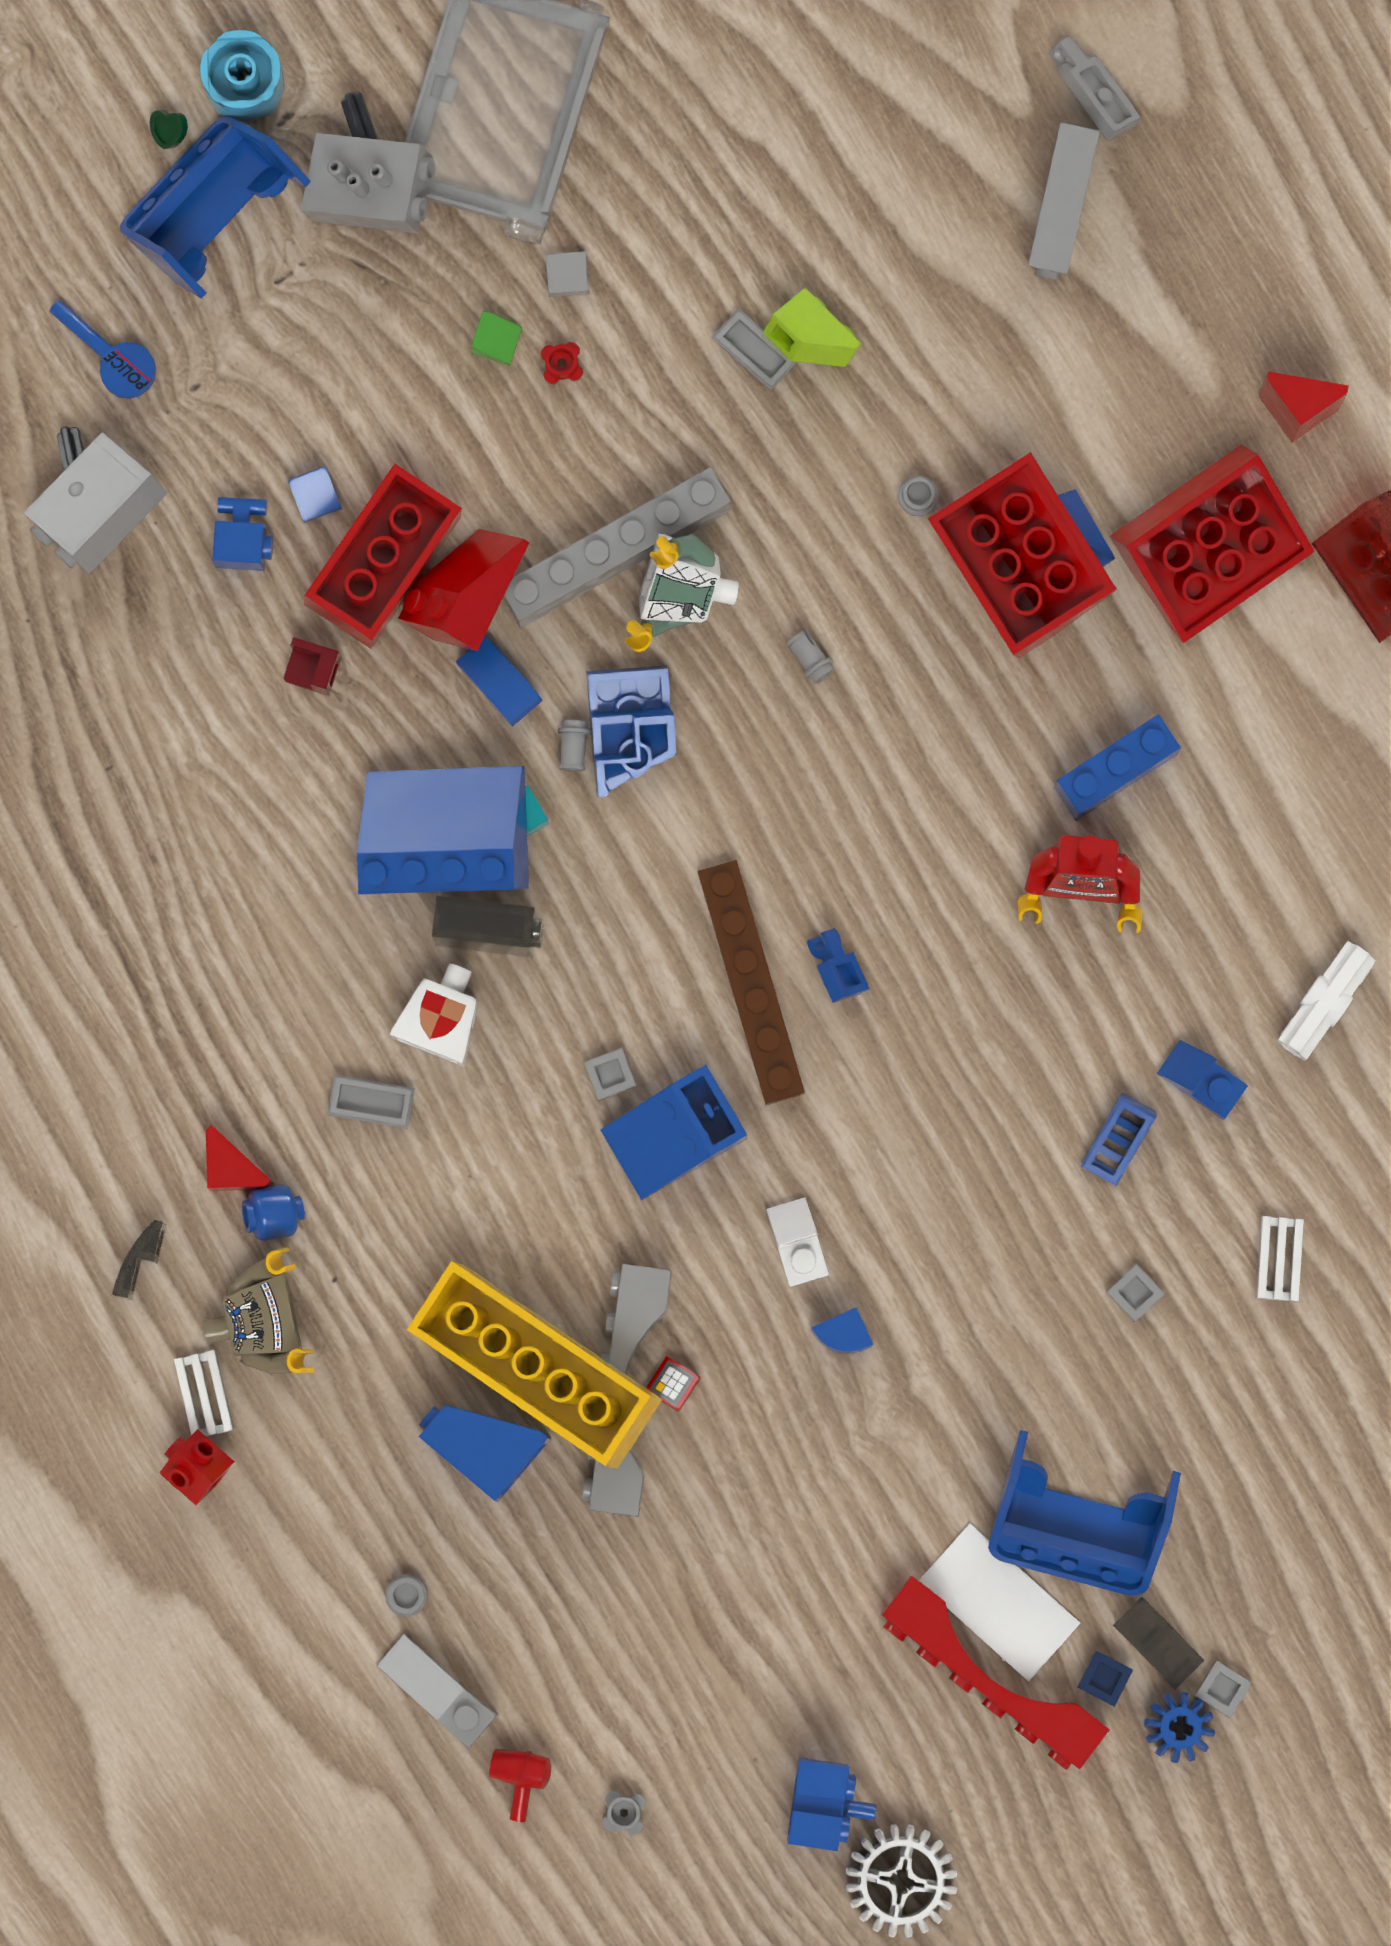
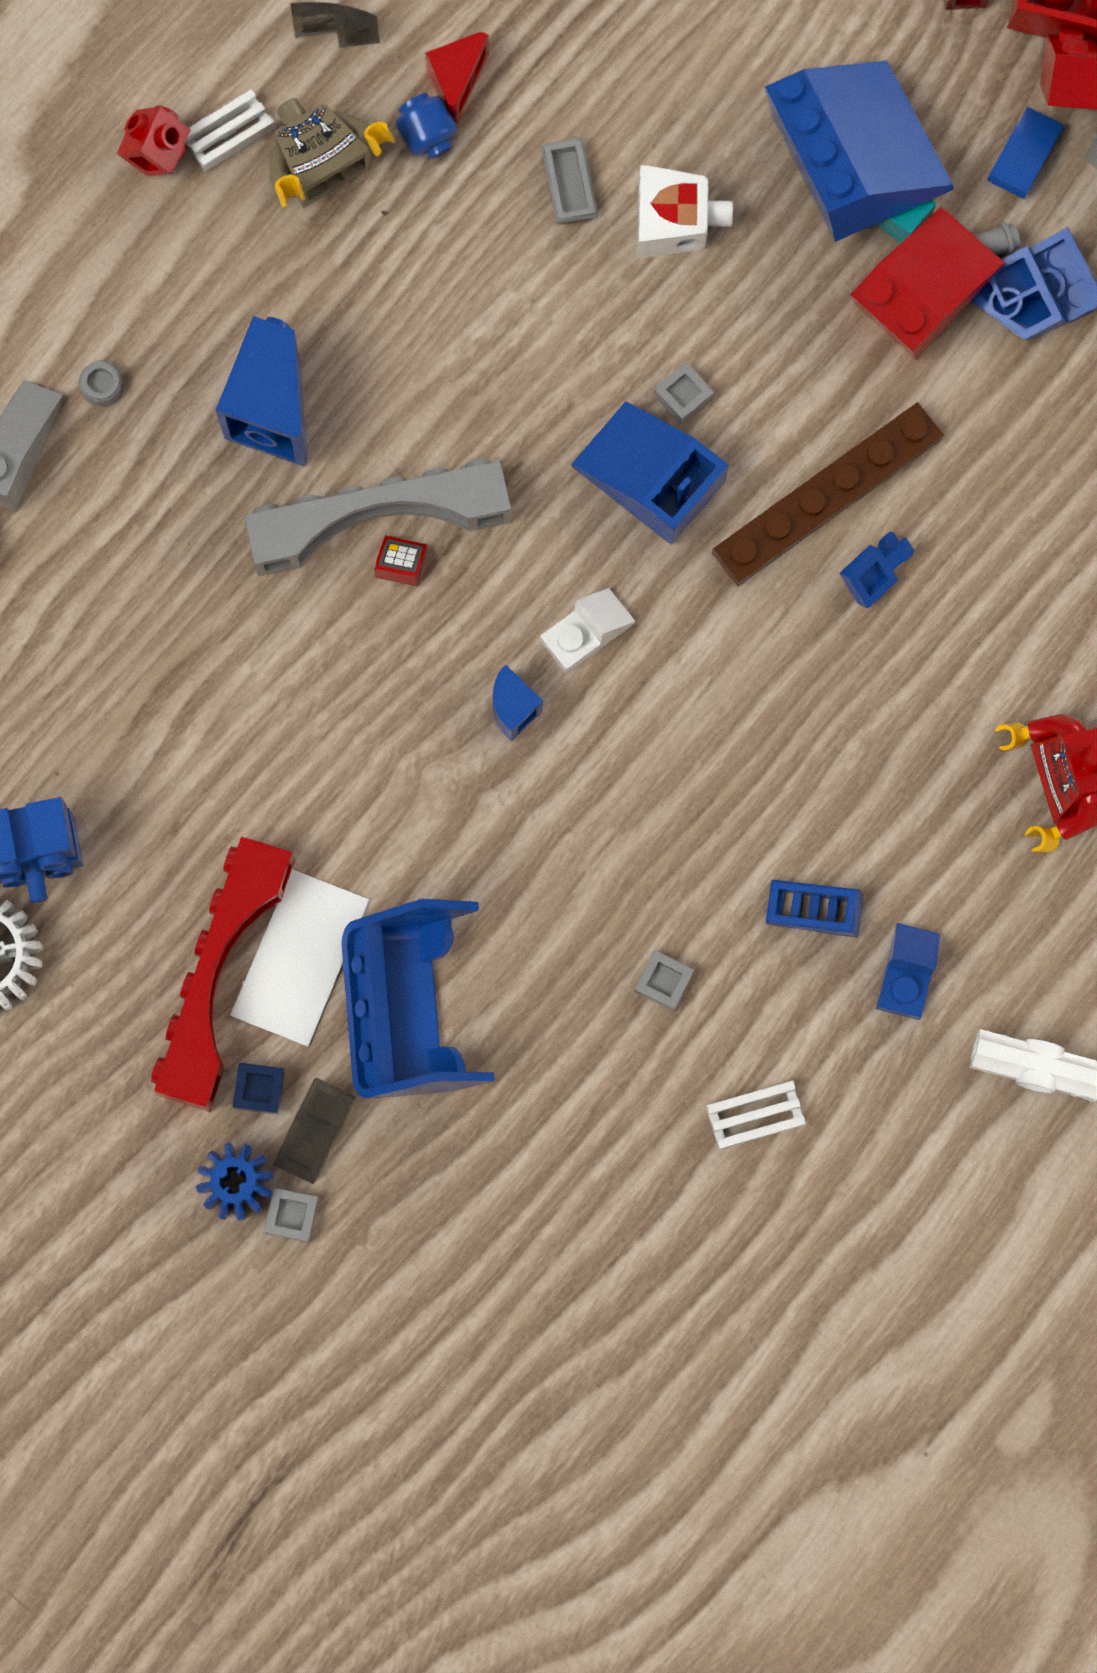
camera: 65 degrees right, 5 degrees down
(486, 926) = (781, 215): clear smoke brick -> none
(534, 1365) = (366, 409): yellow brick -> none
(593, 820) = (926, 282): none -> red slope

